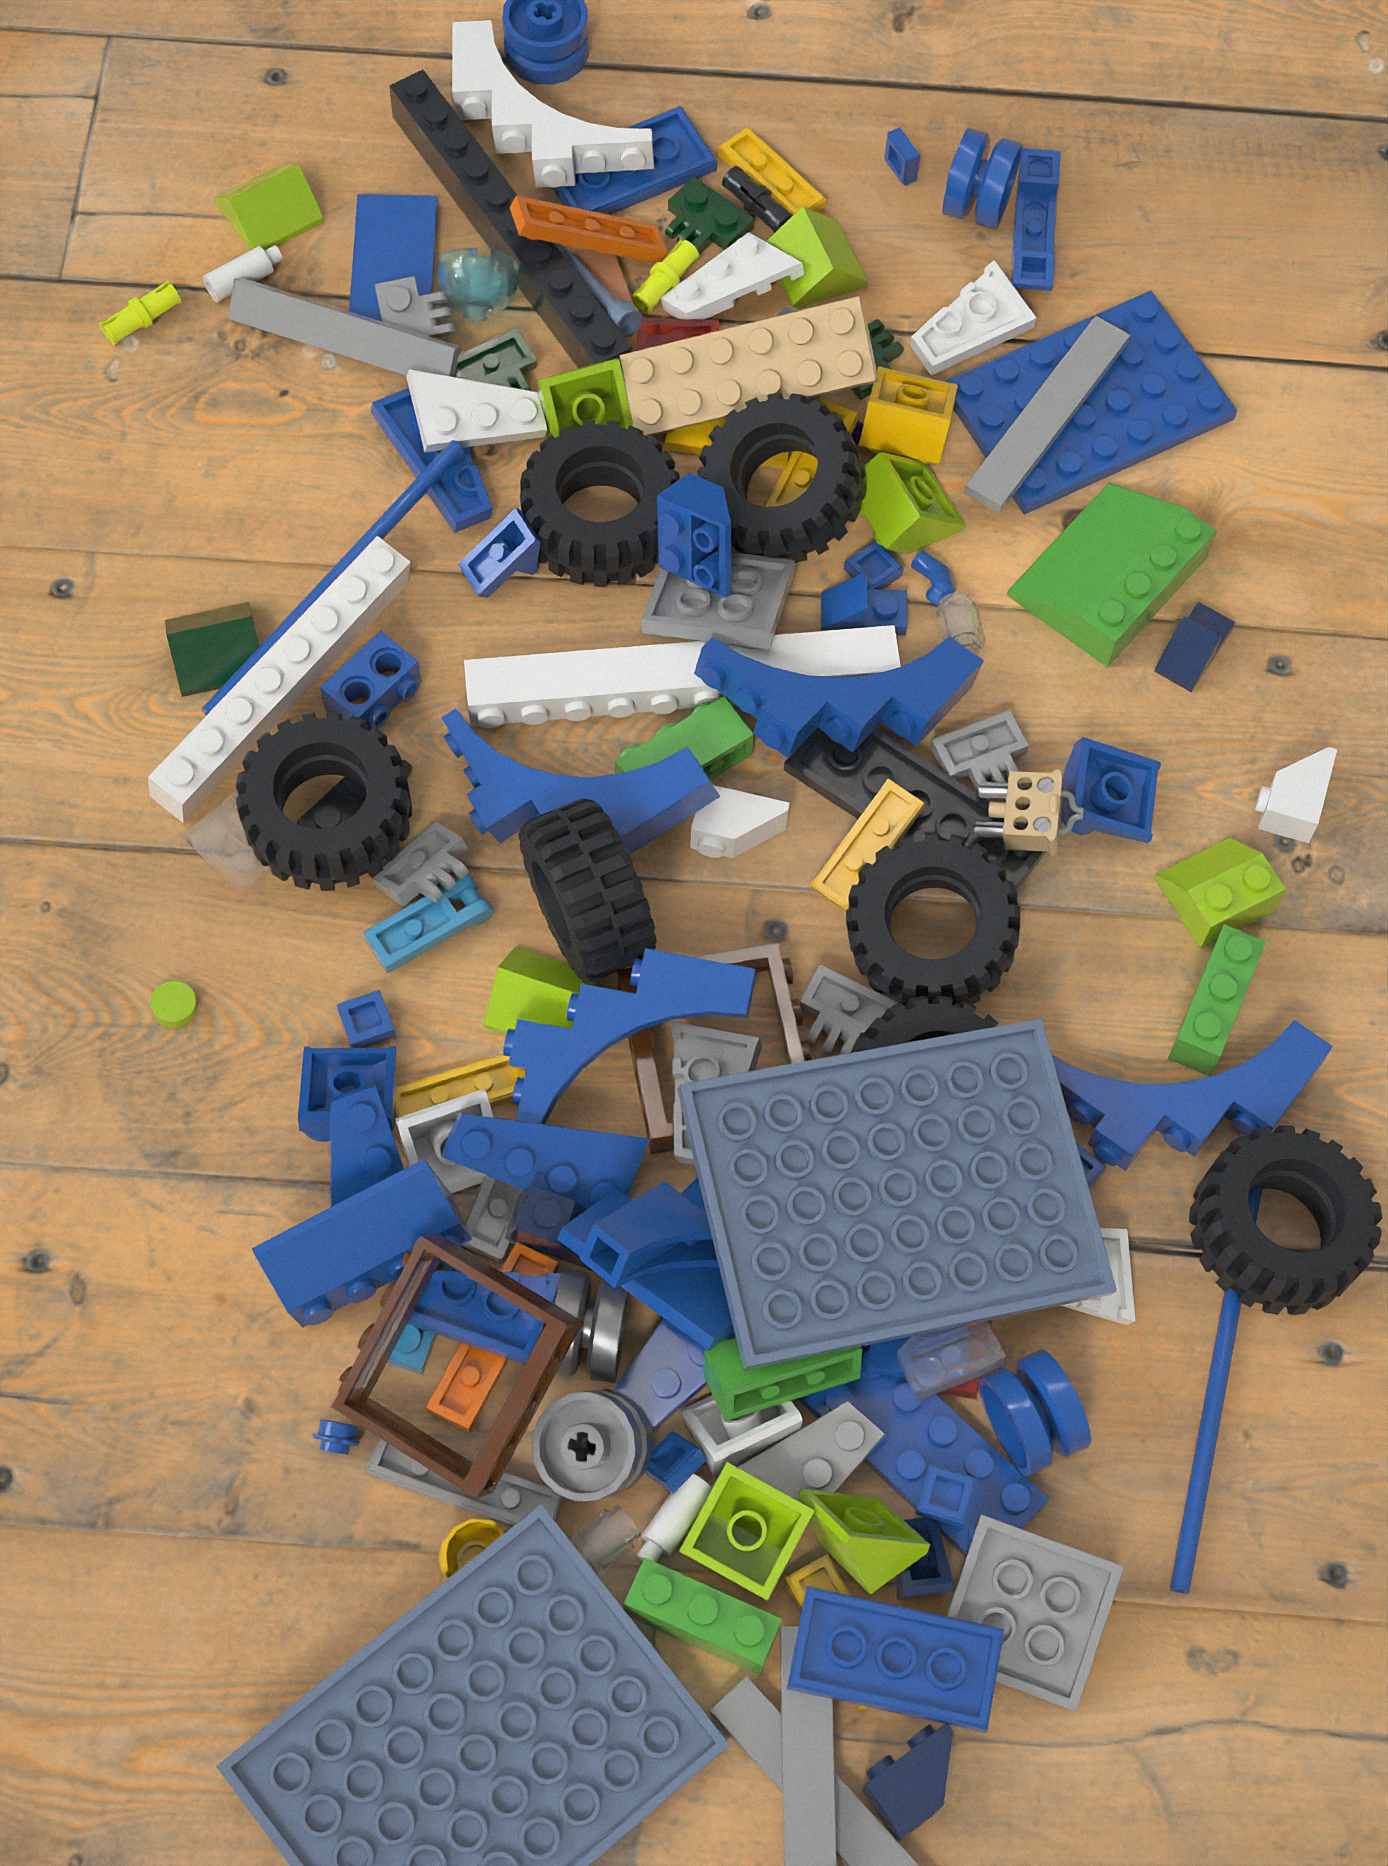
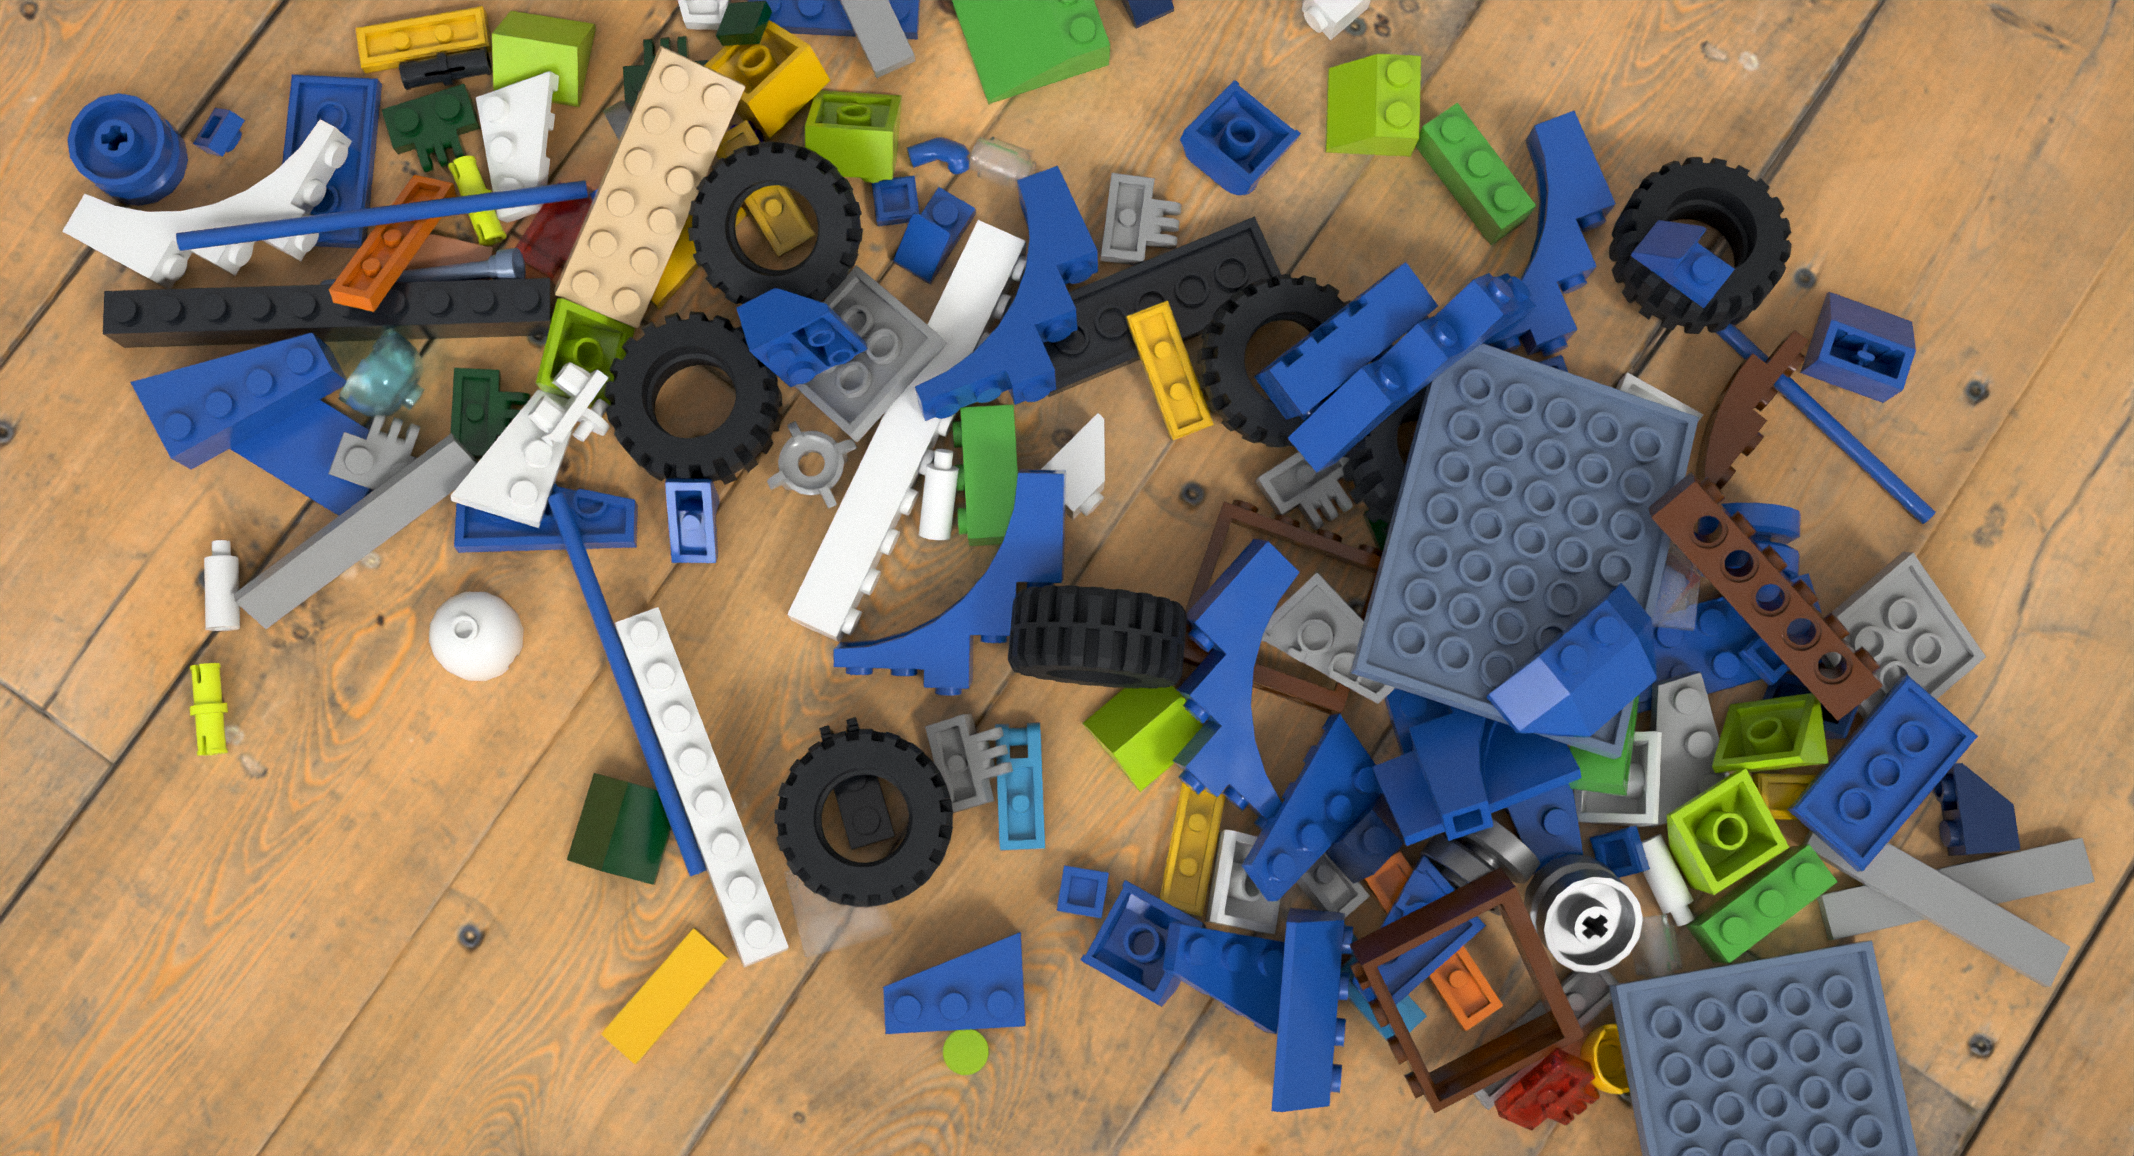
camera: 60 degrees left, 15 degrees up
(92, 749) = (665, 996): none -> yellow tile
(226, 969) = (961, 994): none -> blue wedge
(271, 207) = (160, 520): lime slope -> none
(310, 459) = (476, 635): none -> white cylinder
(336, 1436) = (1446, 1121): blue plate -> none
(363, 679) = (743, 712): blue brick -> none
(396, 194) = (236, 396): none -> blue wedge
(412, 1509) = (1550, 1091): none -> clear red hinge
(554, 414) = (559, 421): none -> white hips
(601, 85) = (220, 132): none -> blue plate
(602, 208) = (381, 215): none -> blue piece
(619, 619) = (802, 444): none -> light grey piece
(638, 724) = (939, 497): none -> white cylinder
(806, 1282) = (1582, 672): none -> blue wedge
(939, 374) = (744, 23): none -> dark green tile
(970, 937) = (1346, 342): none -> blue wedge
(972, 1398) = (1838, 687): none -> reddish brown brick
(998, 994) = (1413, 362): none -> blue arch
(1030, 811) = (1227, 202): tan piece -> none
(1141, 1344) = (1733, 422): none -> reddish brown slope
(1247, 1191) = (1679, 259): none -> blue slope
(1295, 1426) = (1860, 349): none -> blue slope

